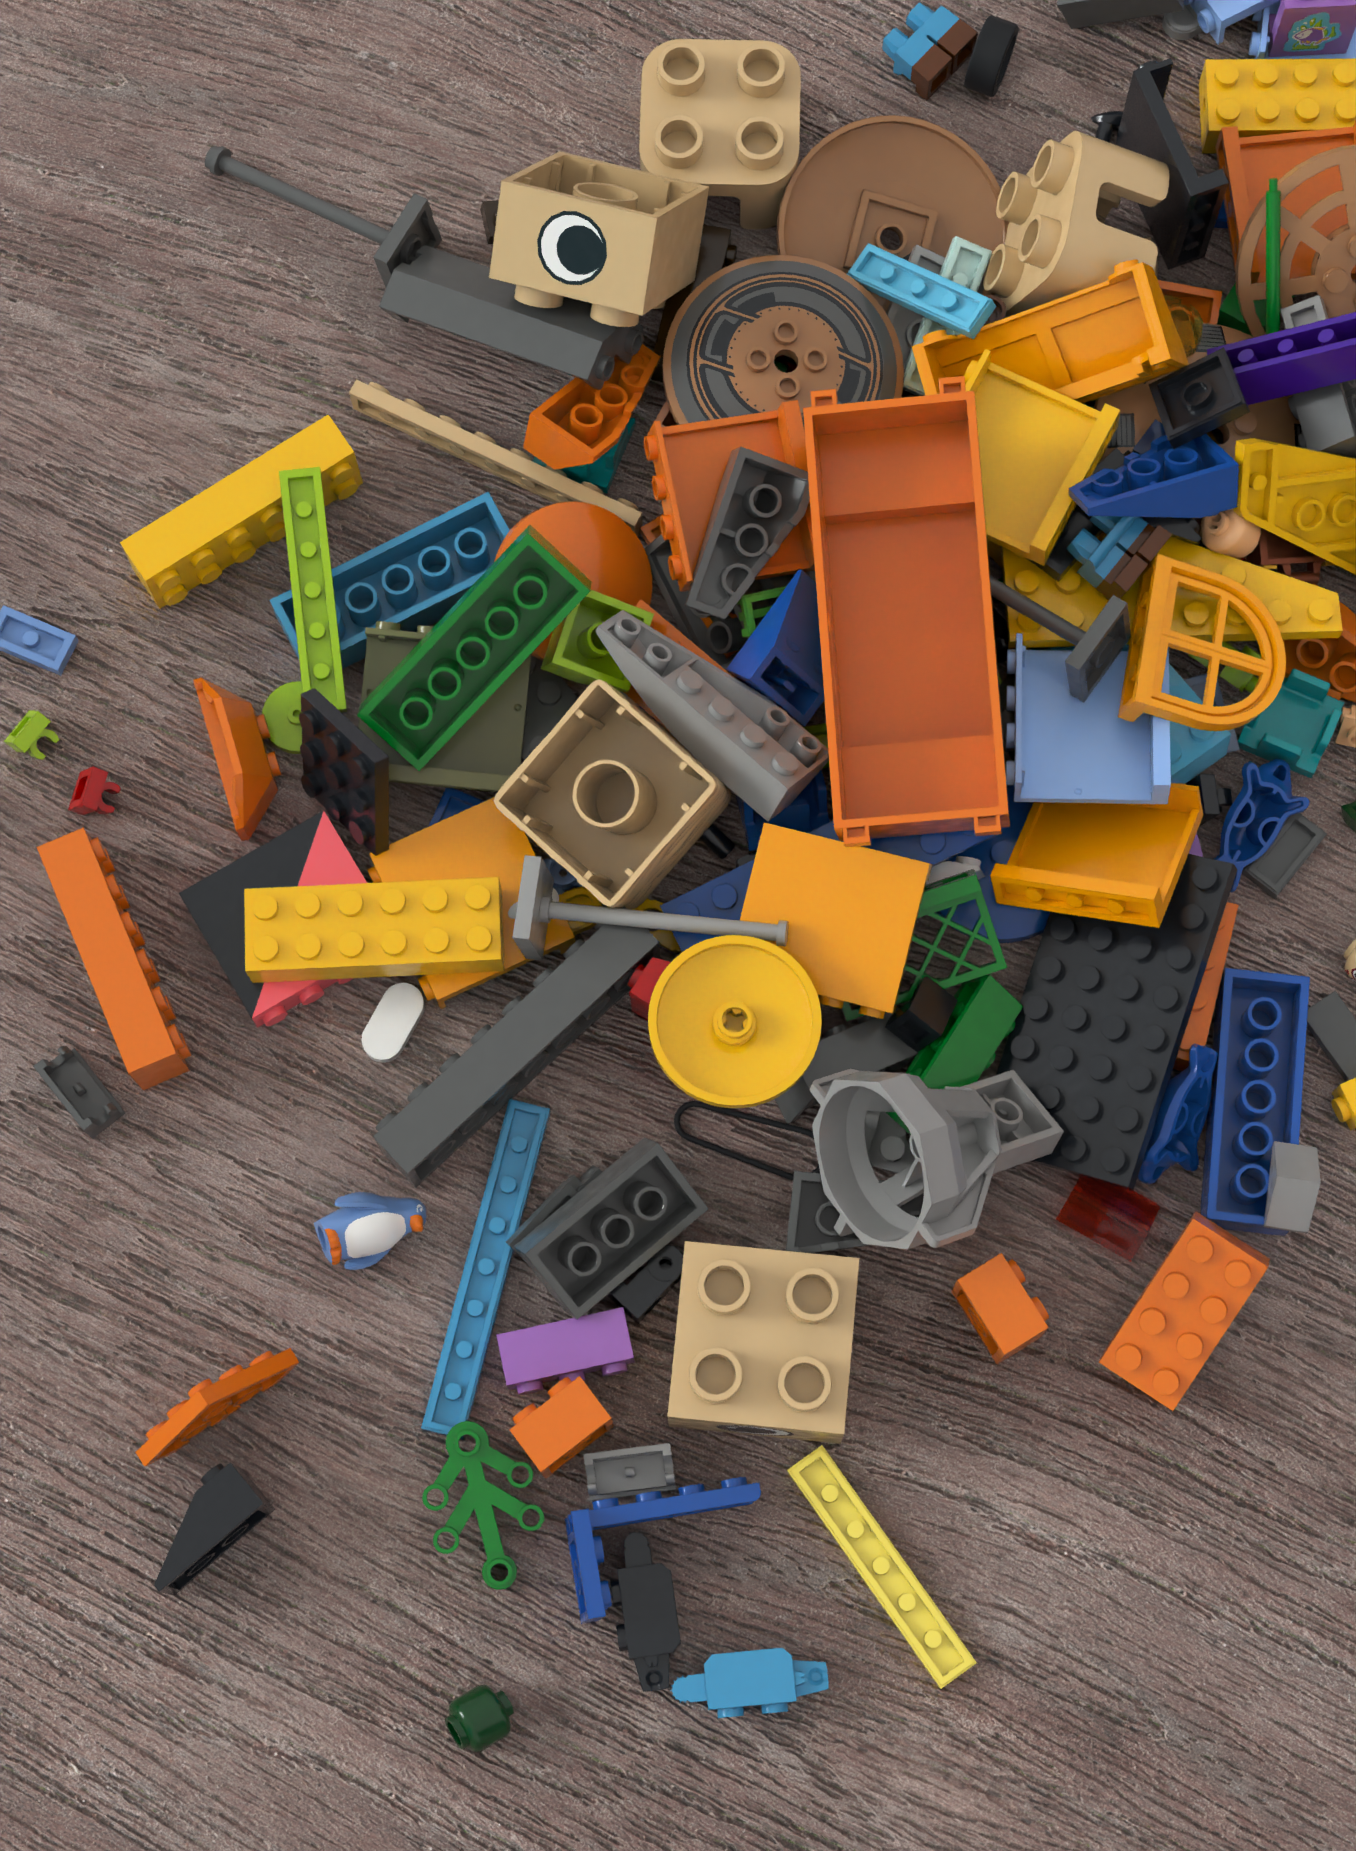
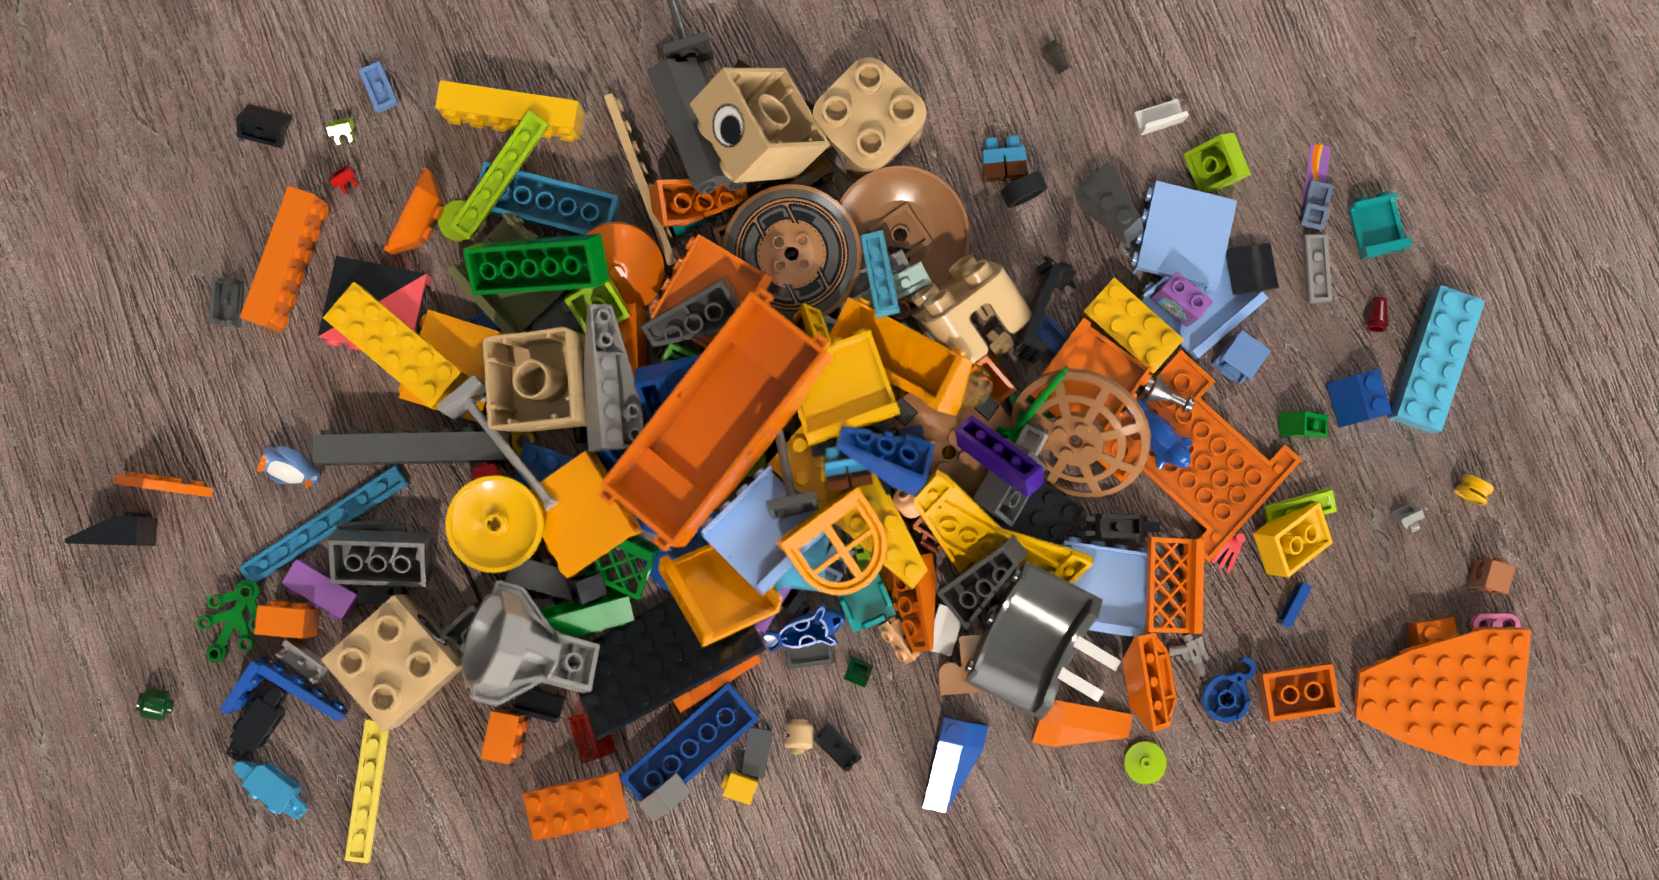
camera: 40 degrees right, 10 degrees up
(345, 772) = (442, 267): black plate -> none
(393, 1022) = (377, 389): white tile -> none
(1003, 1233) = (539, 705): none -> black panel
(1181, 1117) = (653, 725): blue animal -> none
(1199, 398) = (942, 435): black tile -> none

